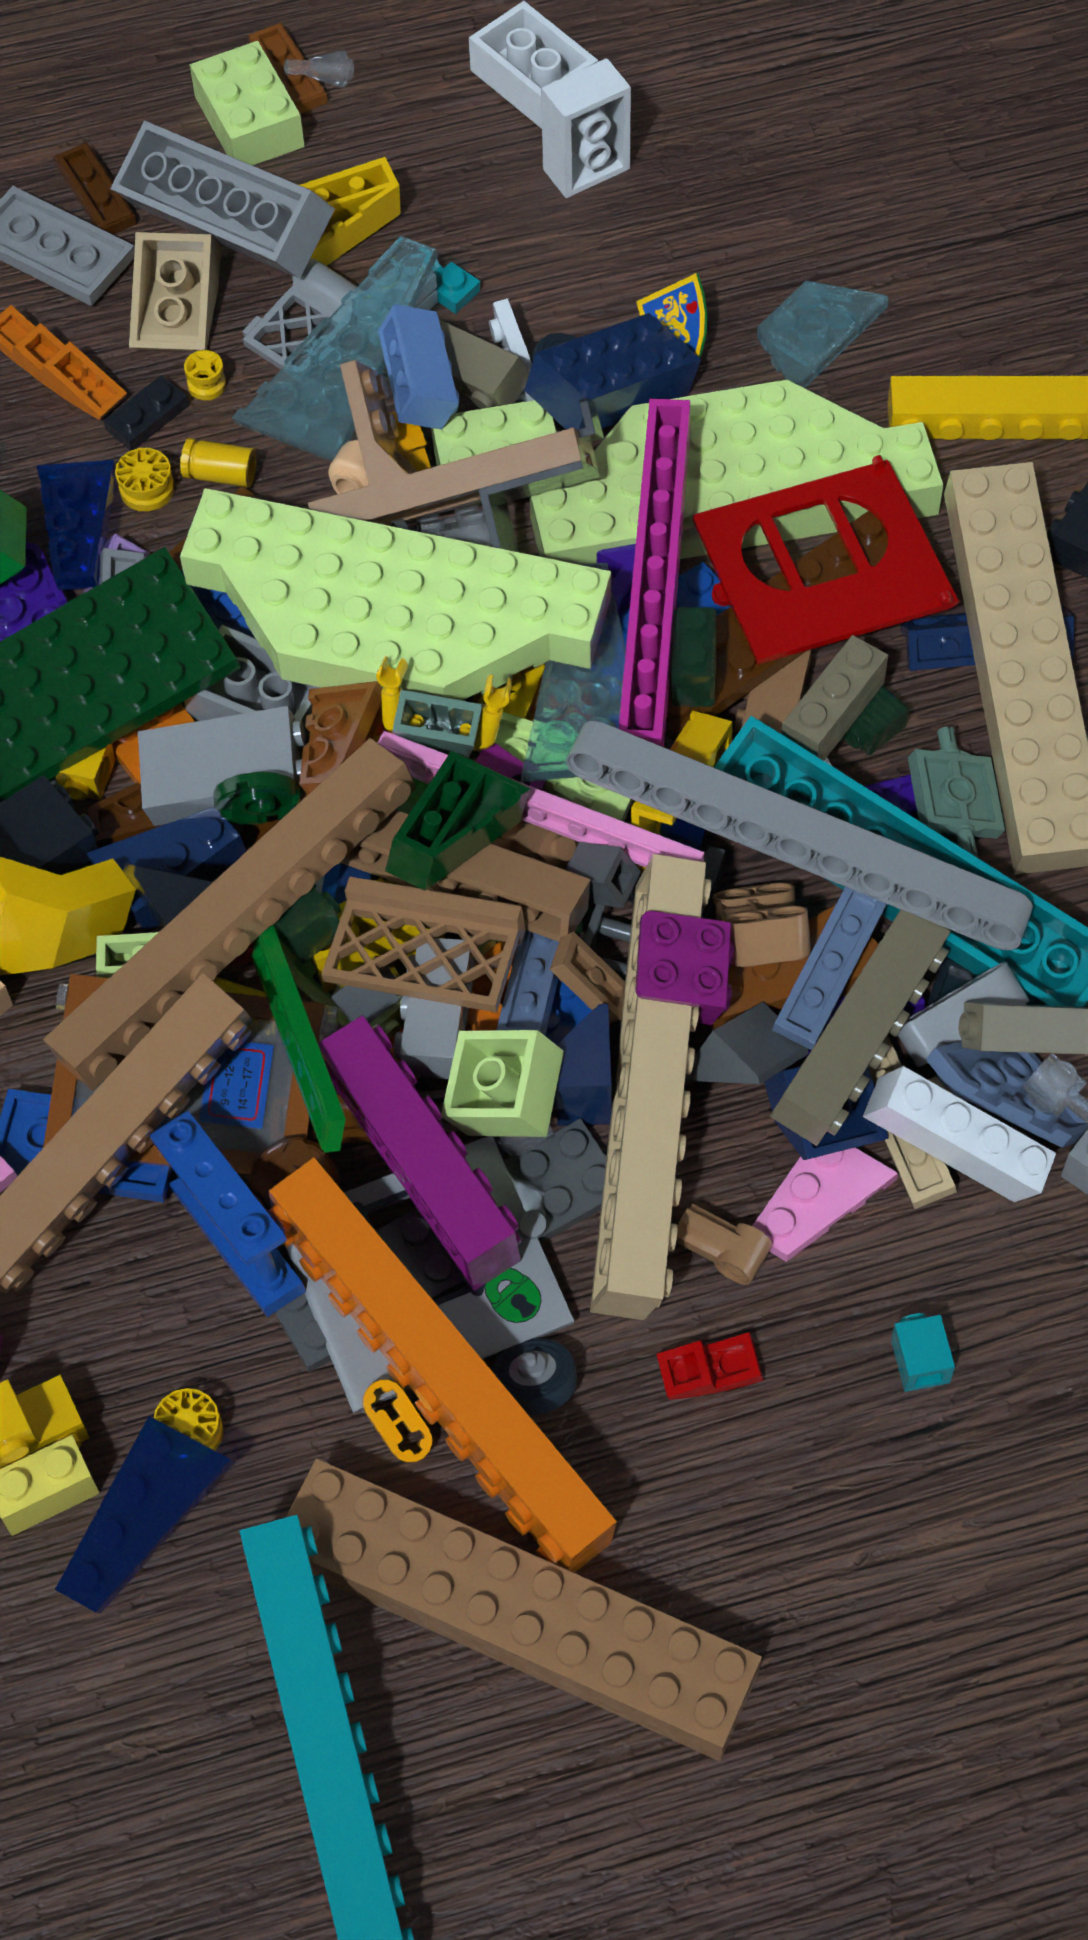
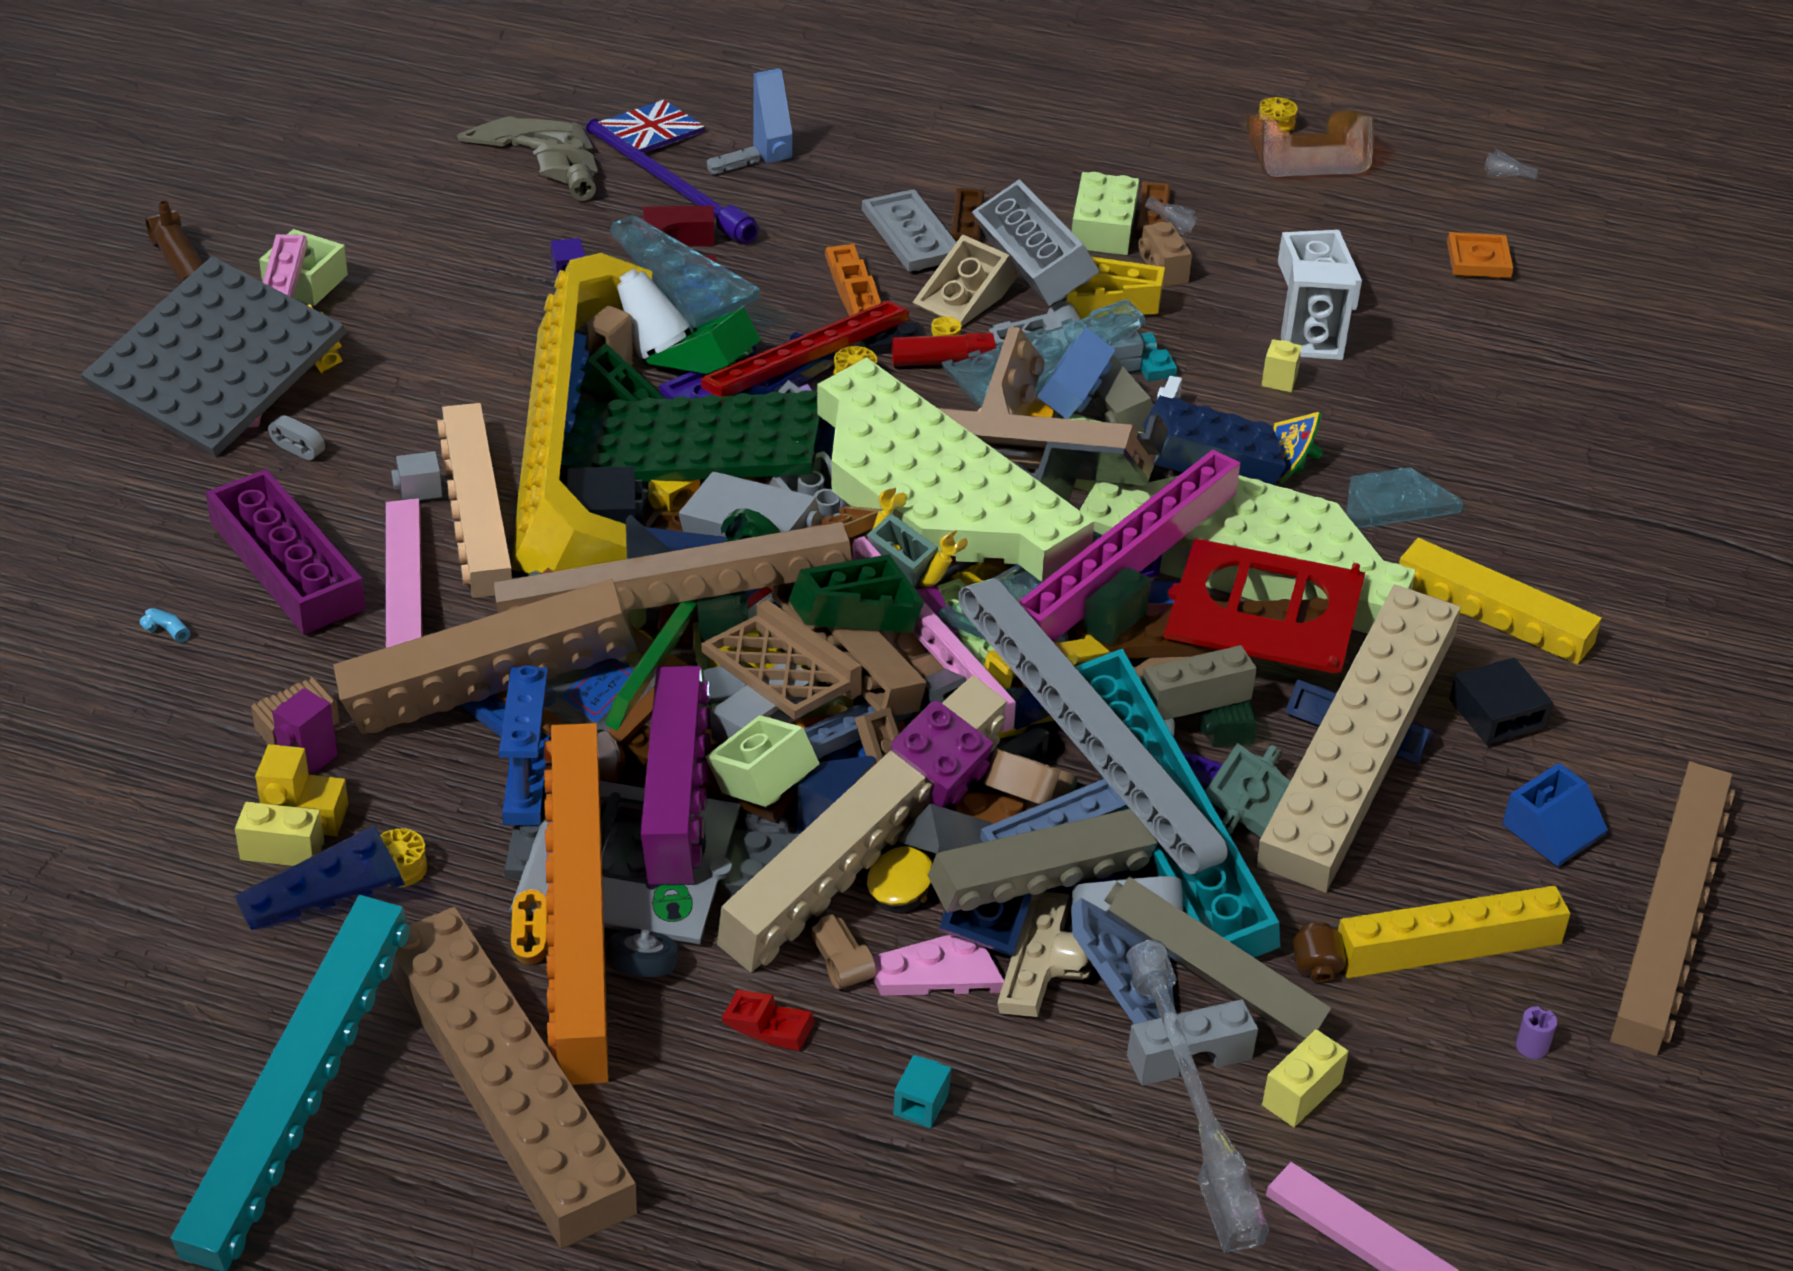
camera: 30 degrees right, 20 degrees down
(80, 492) = (804, 349): none -> red tile
(218, 399) = (938, 349): none -> red piece
(218, 462) = (913, 377): yellow piece -> none
(354, 127) = (1165, 248): none -> medium nougat brick
(587, 218) = (1281, 365): none -> light yellow brick
(715, 1118) = (900, 879): none -> yellow piece
(959, 1134) = (1059, 967): white brick -> none

